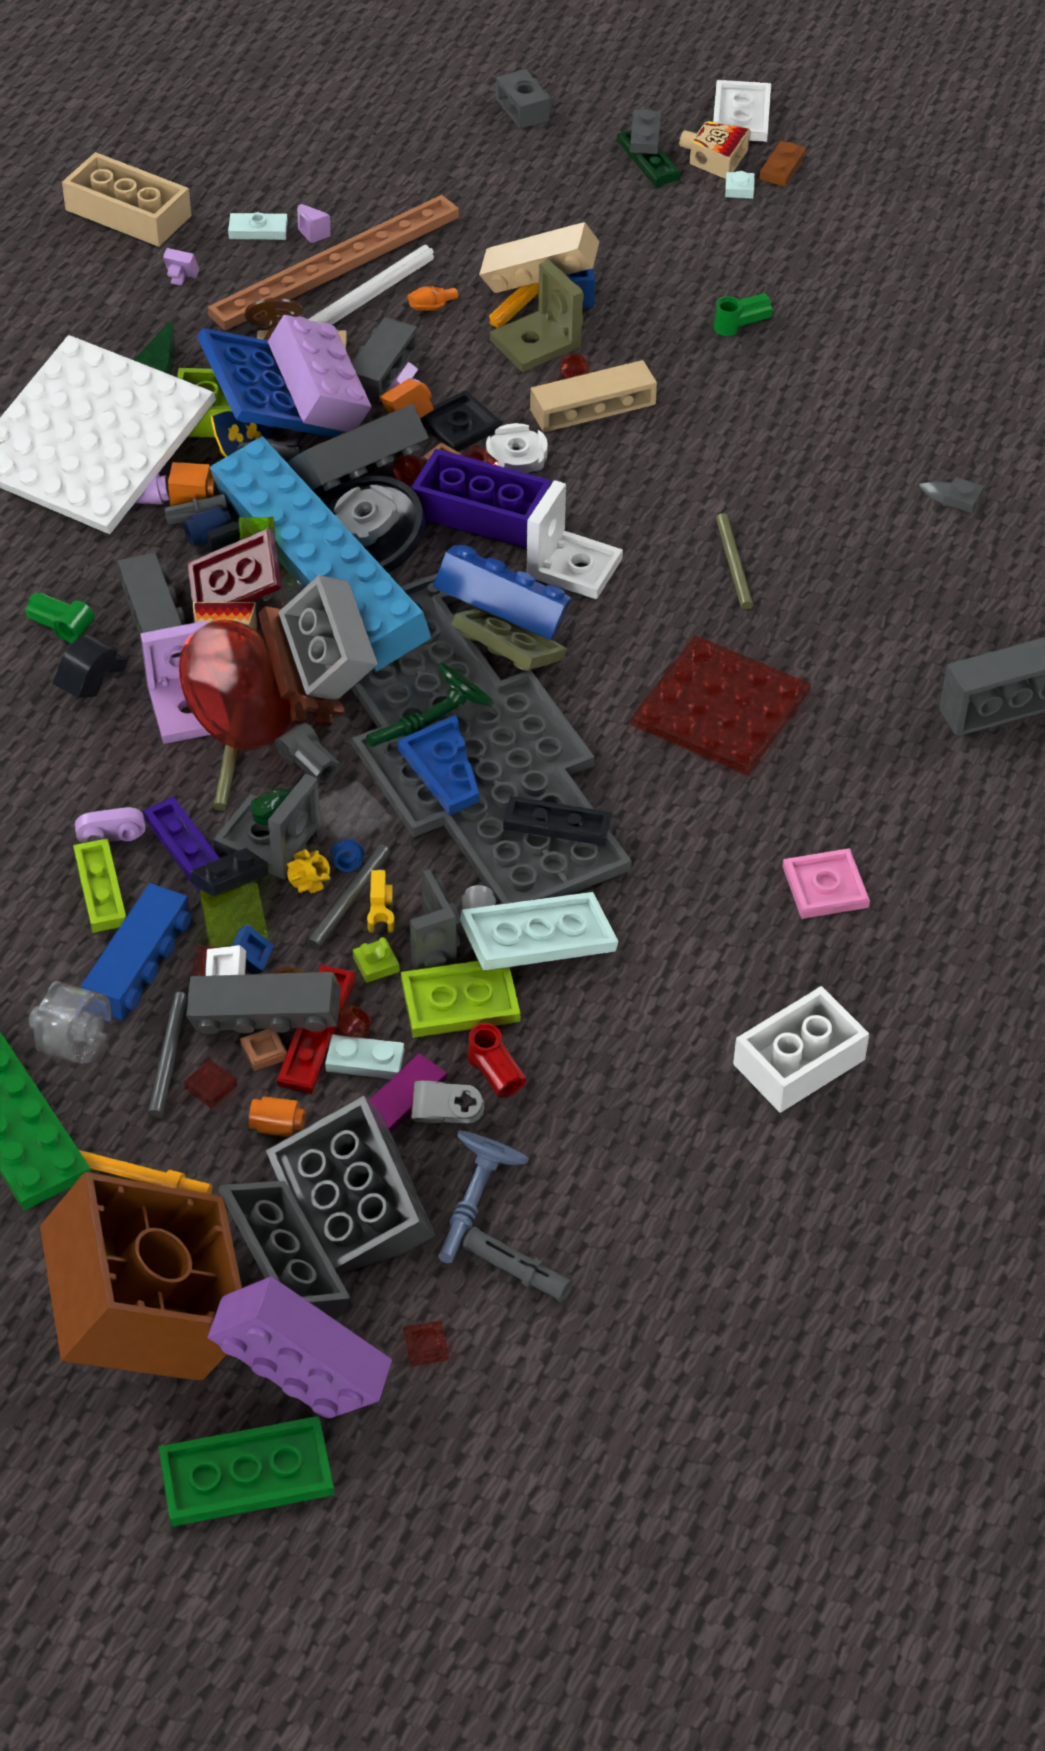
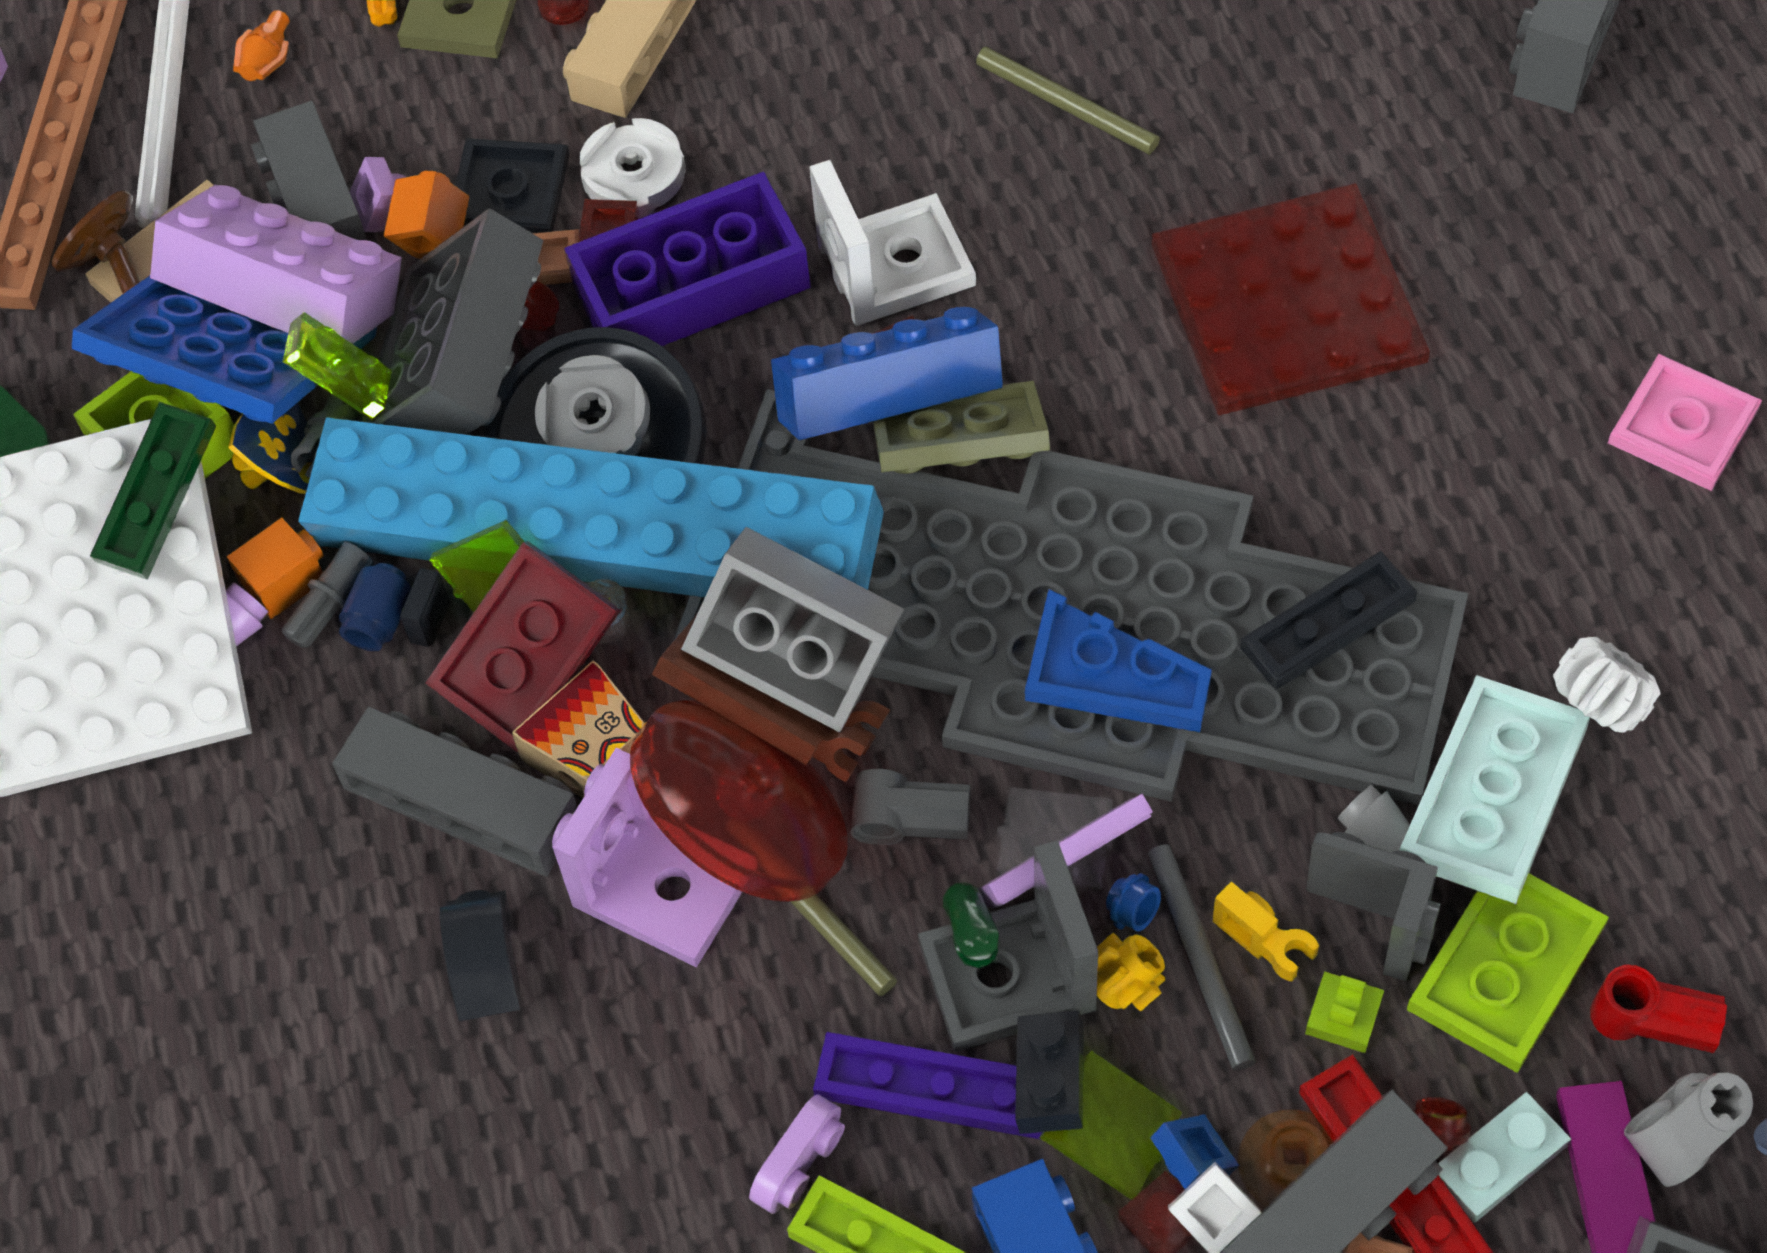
camera: 40 degrees left, 10 degrees up
(66, 619) = (352, 908): green piece -> none
(165, 409) = (153, 490): none -> dark green tile
(292, 423) = (337, 365): none -> clear neon green plate
(356, 814) = (1073, 848): none -> lavender tile
(460, 692) = (1016, 555): dark green dish -> none
(636, 933) = (1606, 684): none -> white gear

